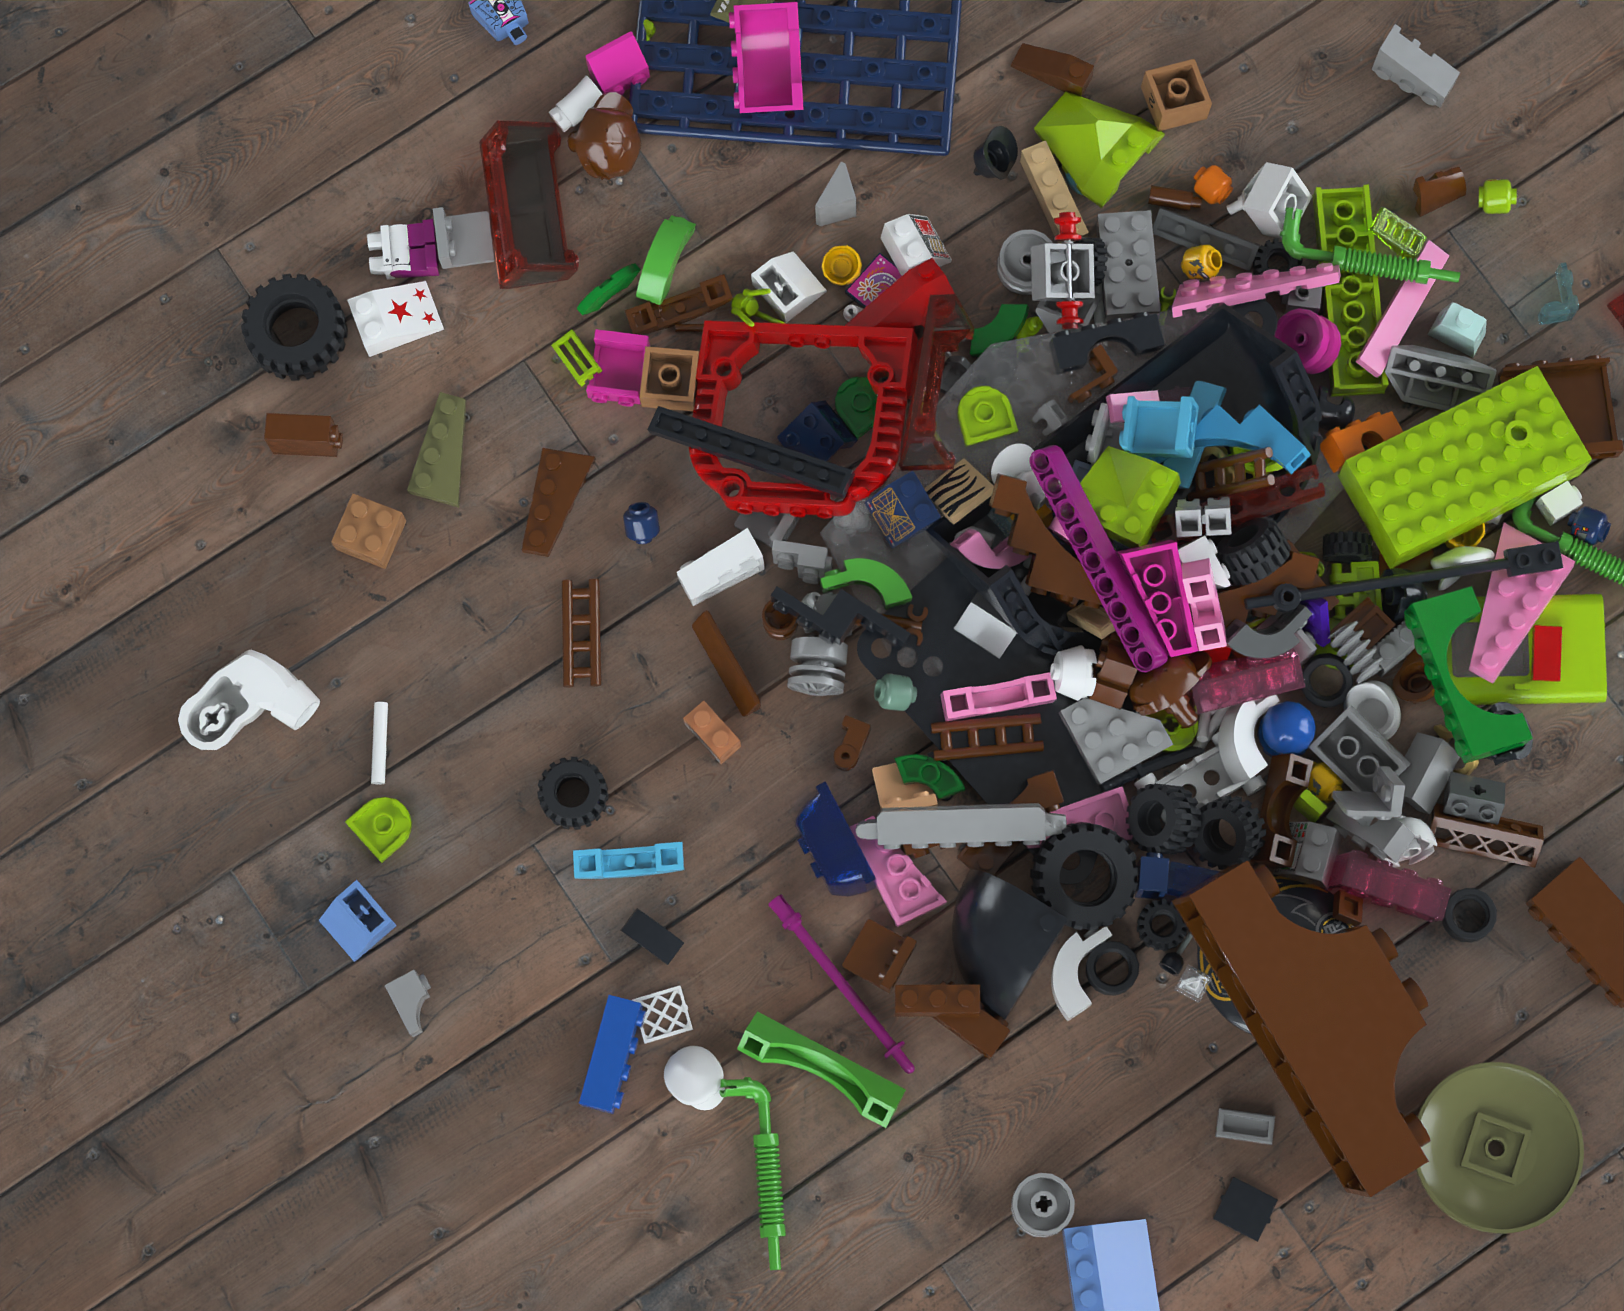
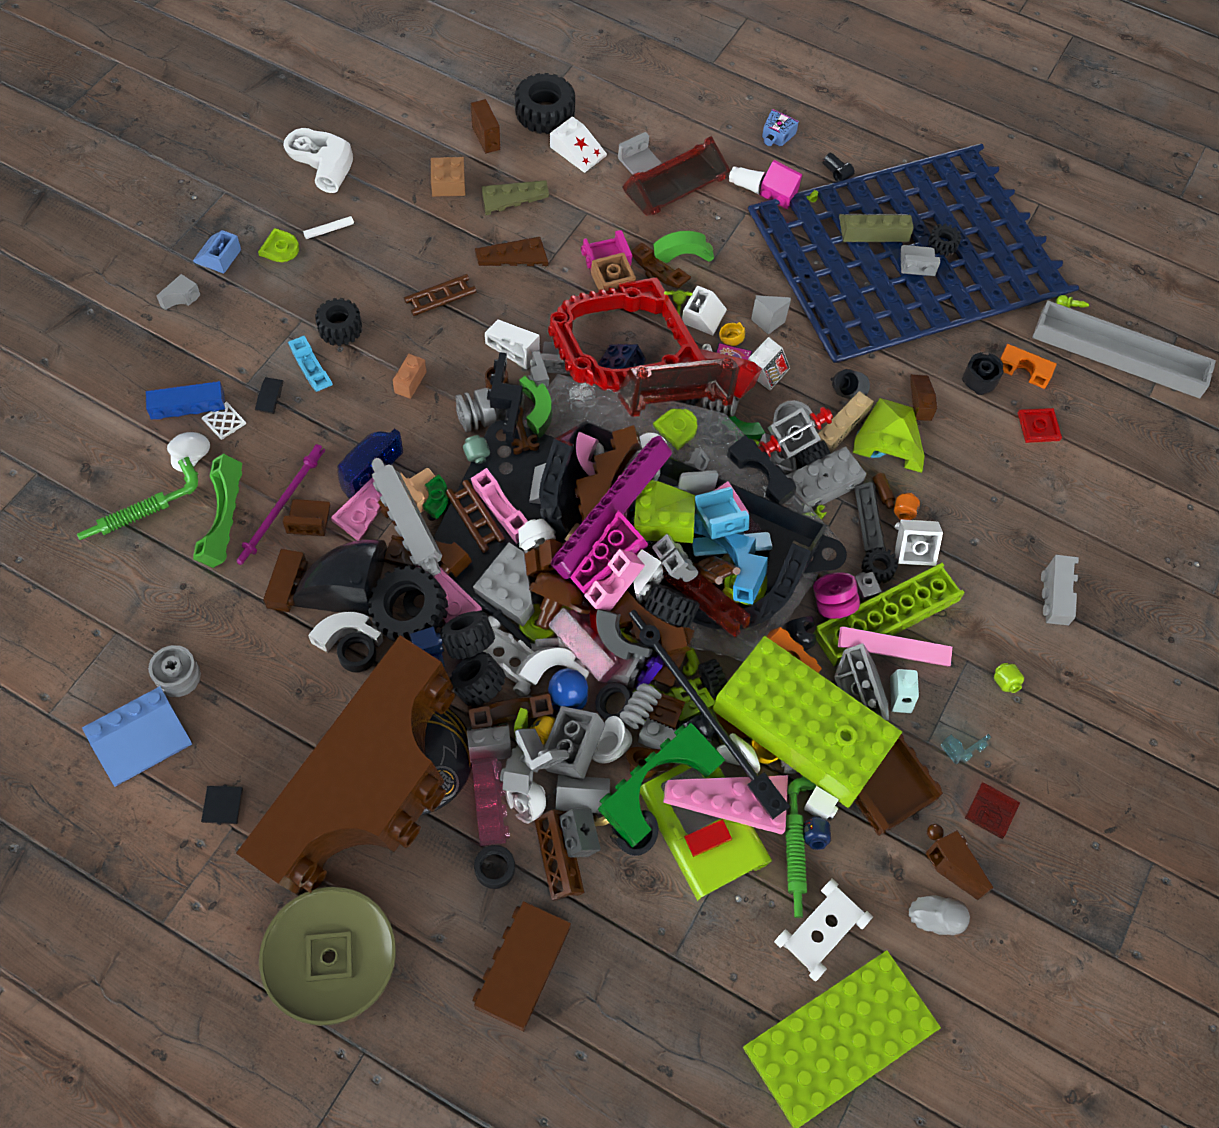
camera: 55 degrees right, 15 degrees down
(406, 250) = (613, 134): hips -> none
(588, 373) = (604, 232): lime tile -> none
(600, 294) = (645, 228): green tile -> none
(607, 138) = (735, 192): reddish brown piece -> none
(641, 522) = (519, 294): dark blue head -> none
(726, 664) = (457, 371): reddish brown slope -> none
(751, 452) = (585, 316): black plate -> none
(767, 57) = (833, 242): dark pink cylinder -> none
(848, 754) = (437, 451): reddish brown leg -> none
(902, 509) = (594, 405): dark blue slope -> none
(937, 1000) = (285, 549): reddish brown brick -> none
(959, 491) = (615, 422): tan tile -> none
(1100, 363) = (741, 480): reddish brown bracket -> none
(1176, 95) = (949, 462): medium nougat brick -> none
(1201, 262) = (852, 519): yellow head -> none
(1245, 1126) = (279, 775): light grey tile -> none
(1249, 288) = (850, 543): bright pink wing -> none
(1347, 908) = (462, 781): reddish brown plate -> none
(1361, 261) = (910, 606): bright green piece -> none
(1412, 240) = (950, 632): clear neon green slope -> none
(1439, 190) = (989, 638): reddish brown slope -> none

